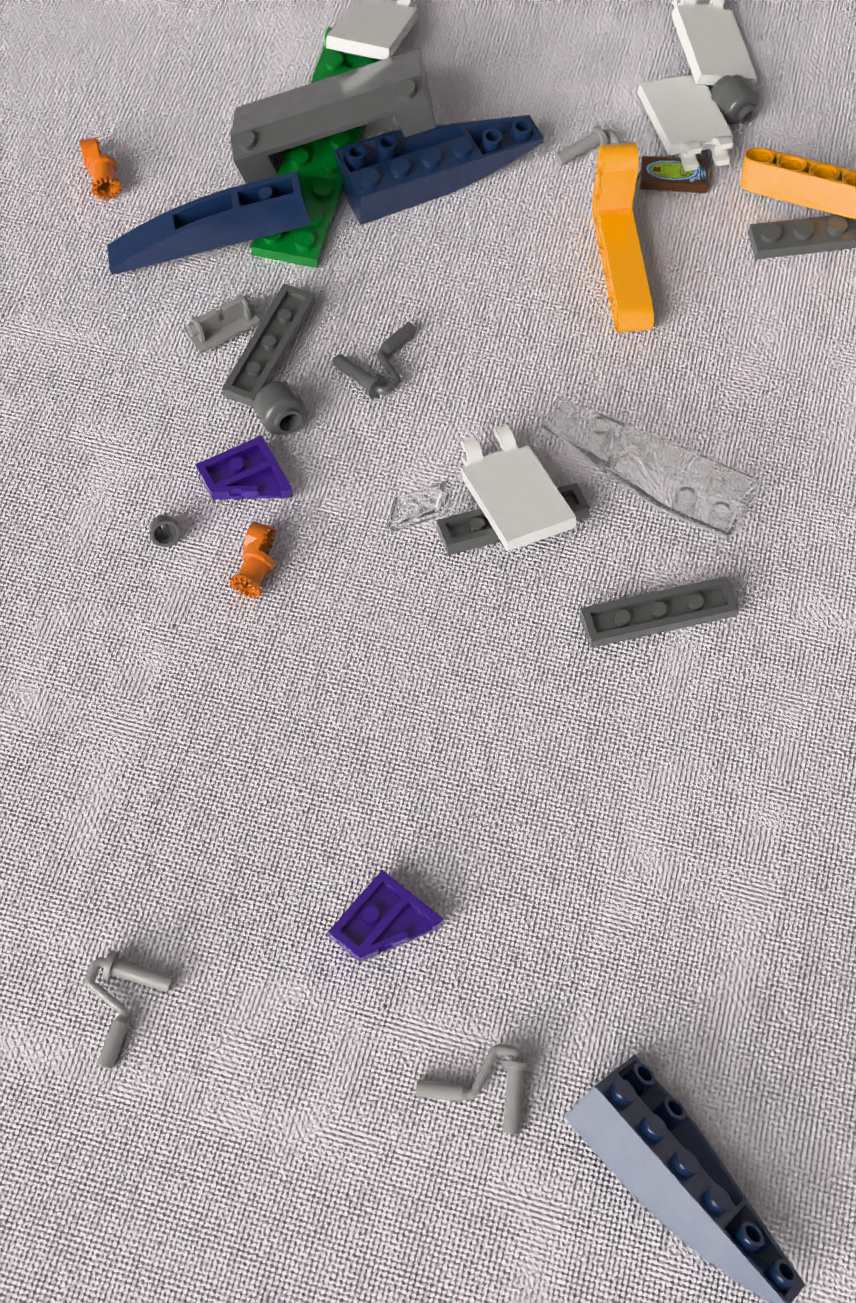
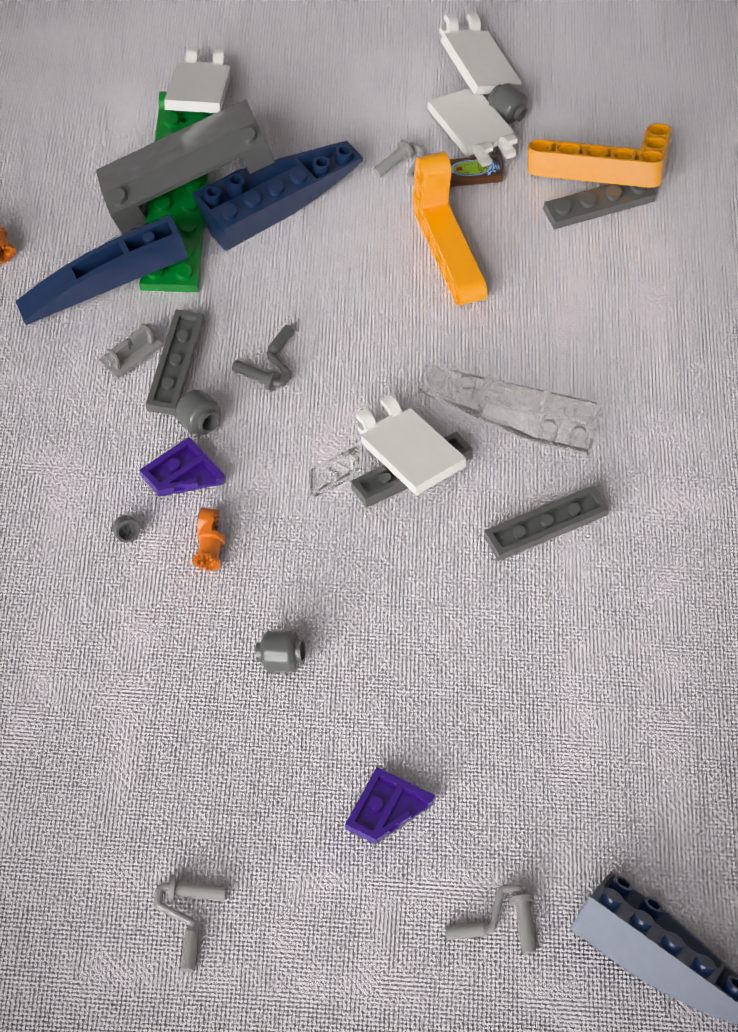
camera: 15 degrees left, 5 degrees down
(305, 709) = (281, 651): none -> dark grey head

